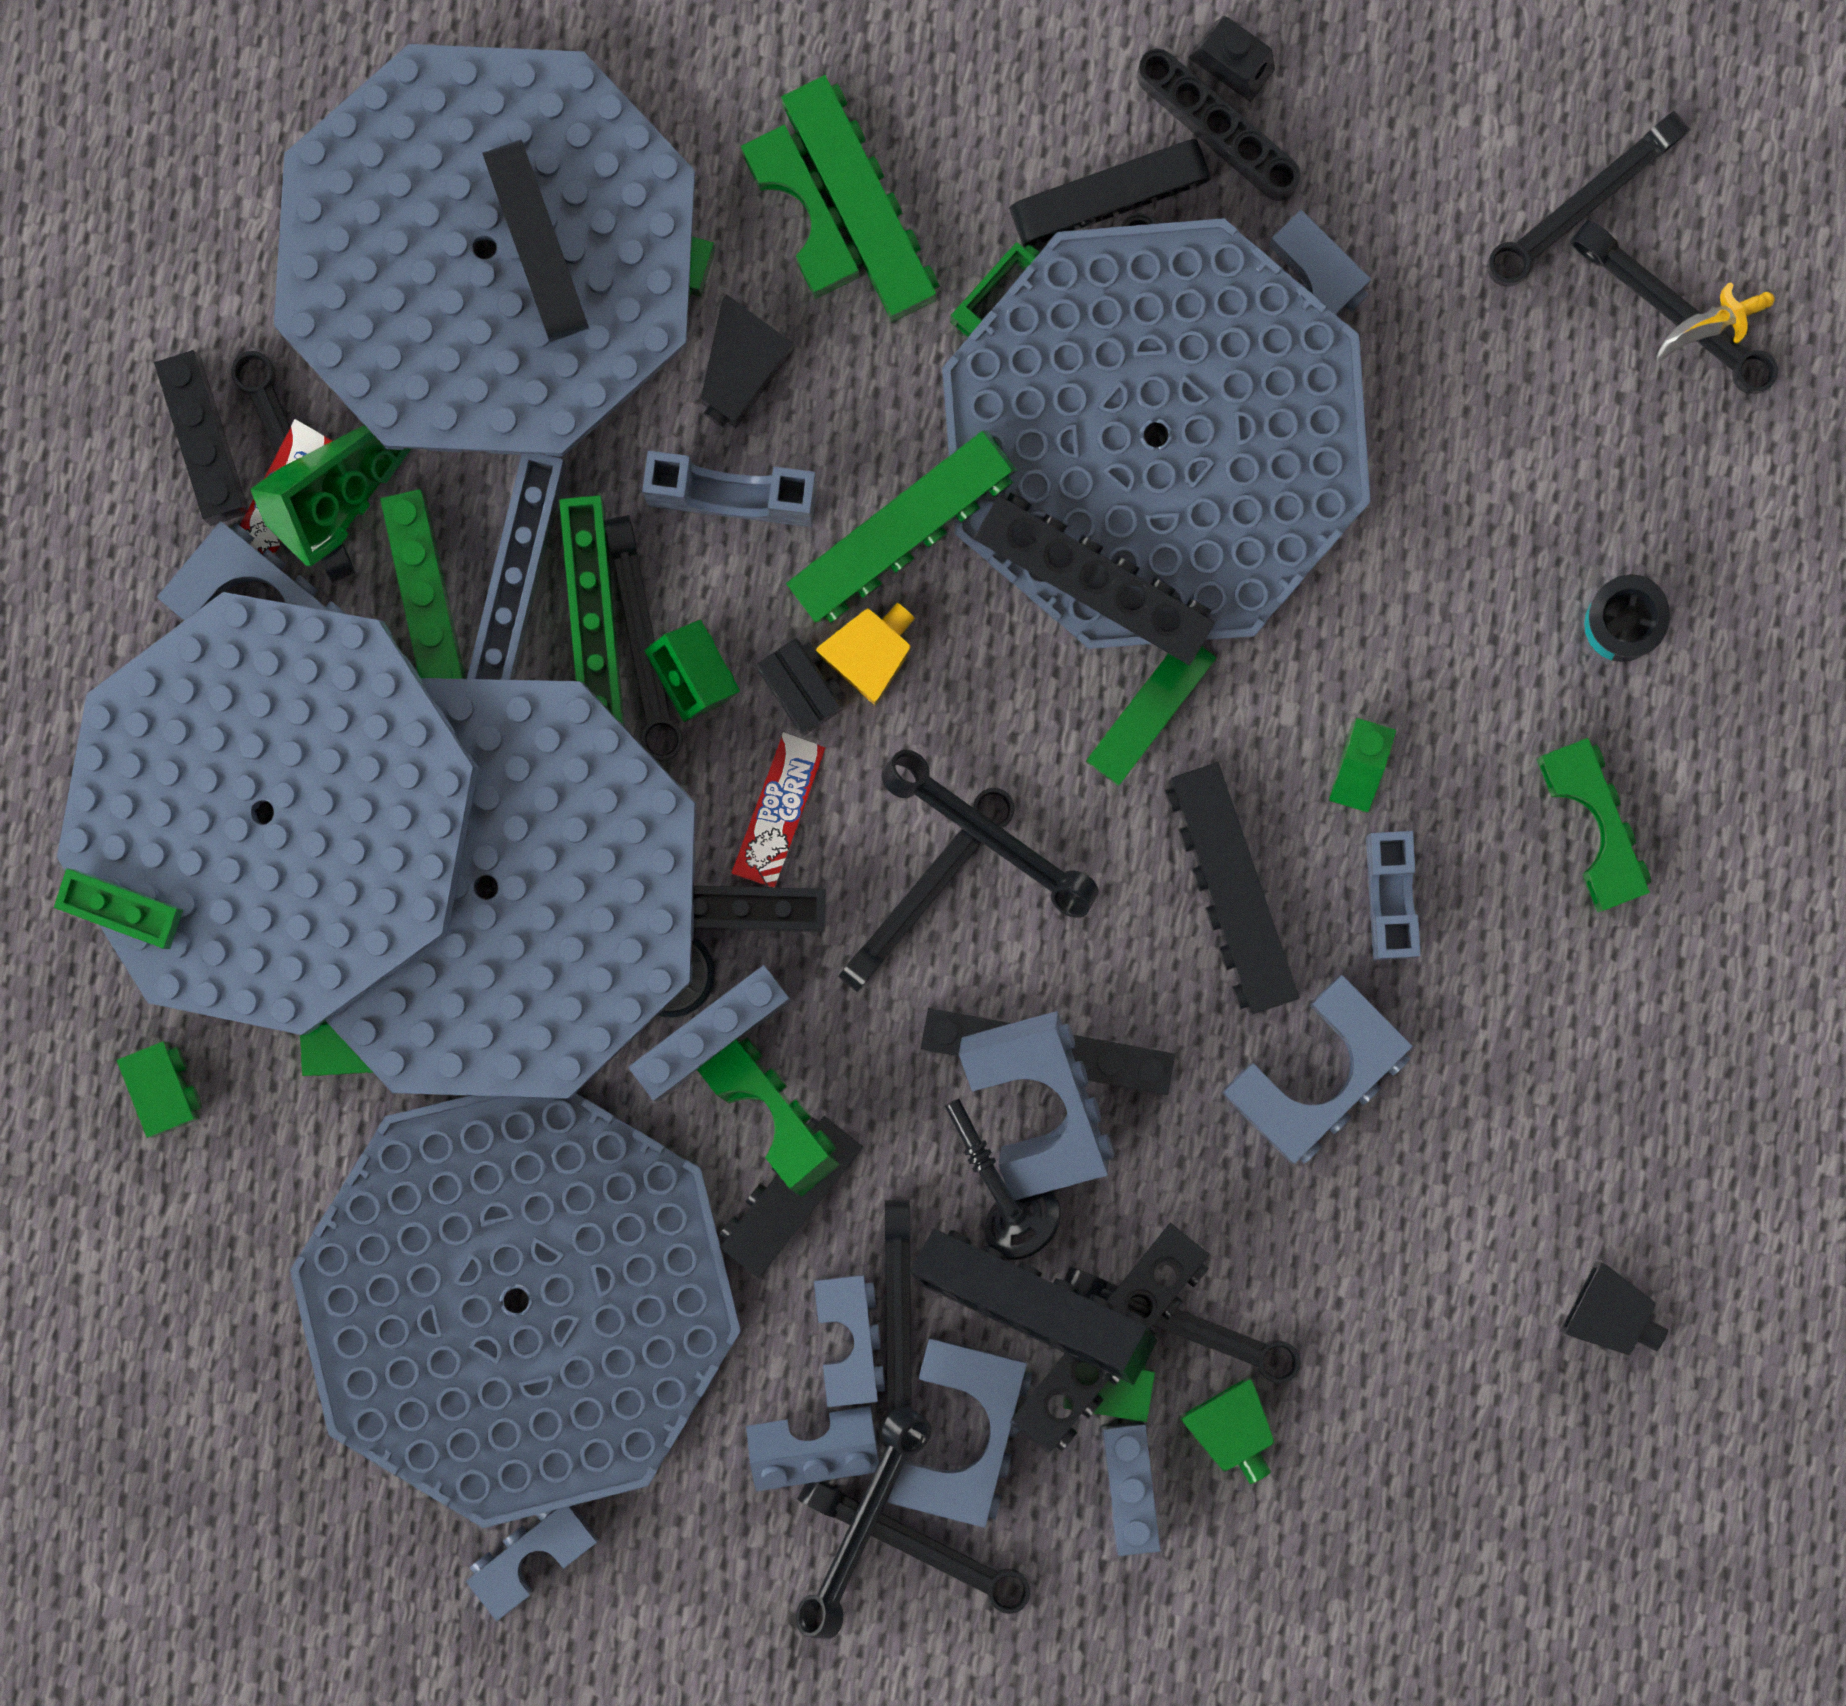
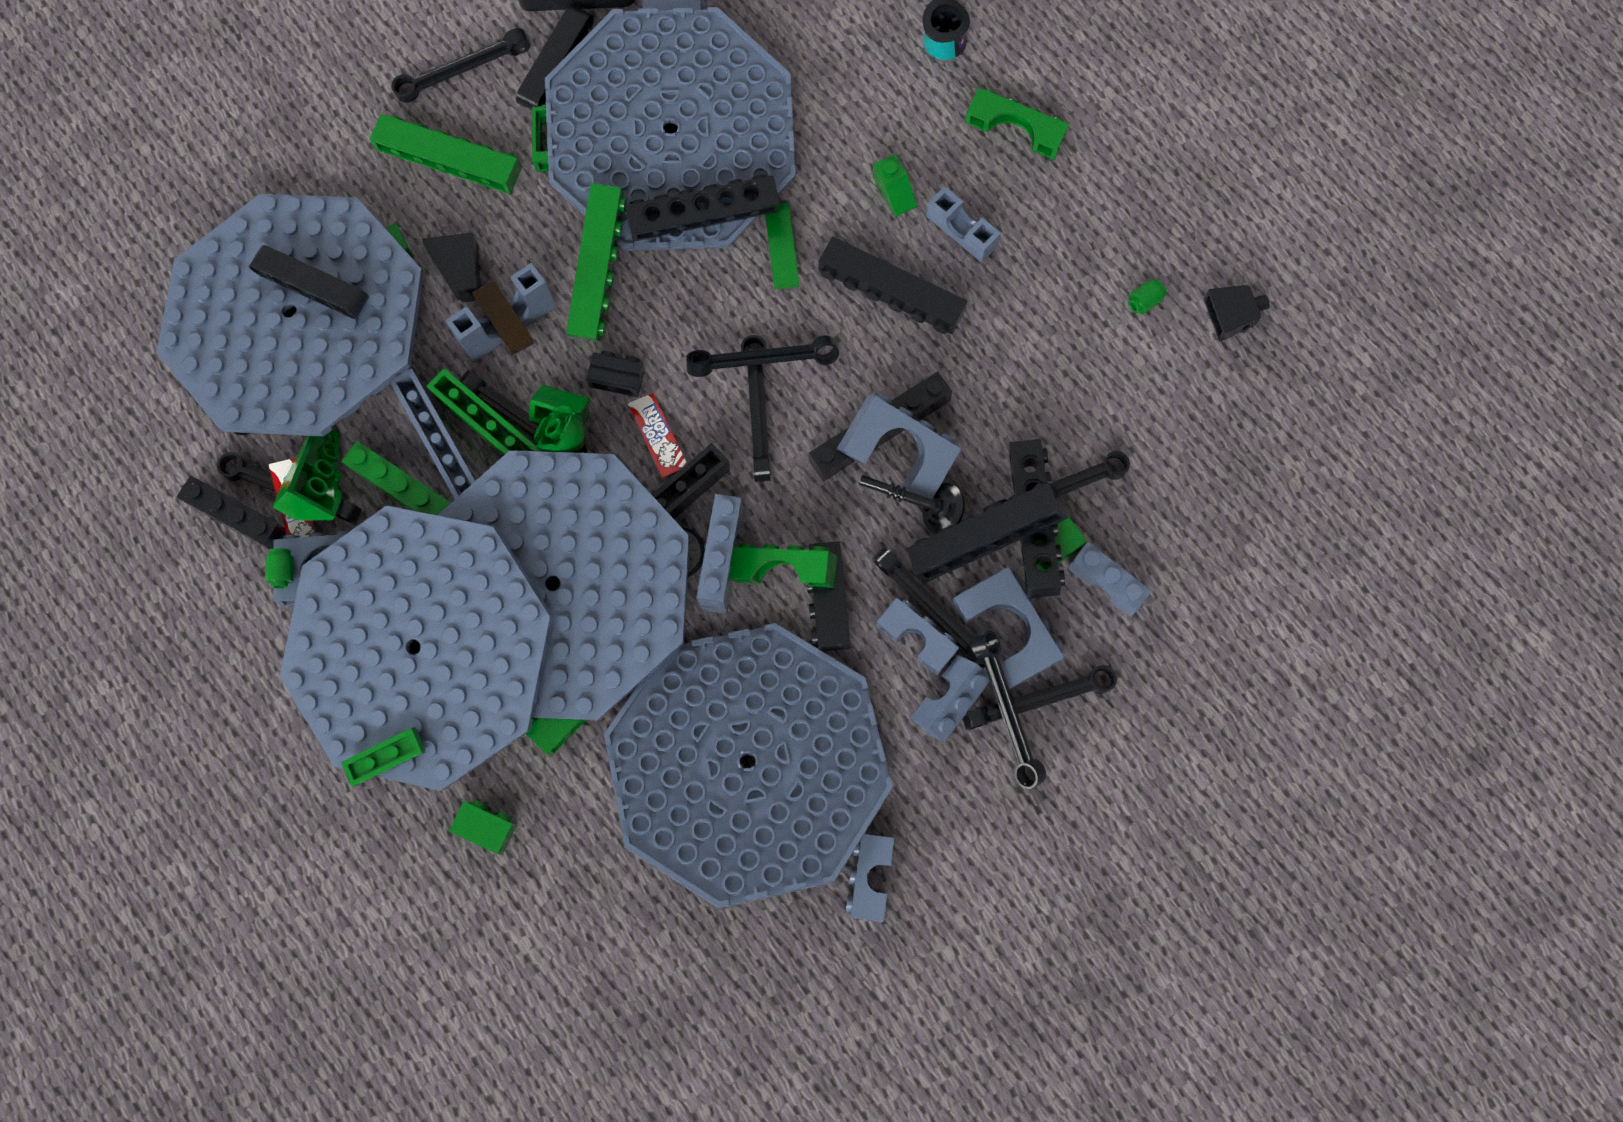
camera: 40 degrees left, 10 degrees down
(195, 569) = (279, 568): none -> green brick
(660, 709) = (561, 432): none -> green cylinder
(729, 491) = (502, 318): none -> dark brown tile
(778, 166) = (396, 171): green arch -> none
(869, 650) = (632, 332): yellow torso -> none
(1072, 120) = (513, 43): none -> black piece
(1233, 1429) = (1127, 511): green torso -> none
(1373, 1051) = (1019, 296): sand blue arch -> none
(1525, 1196) = (1147, 296): none -> green brick

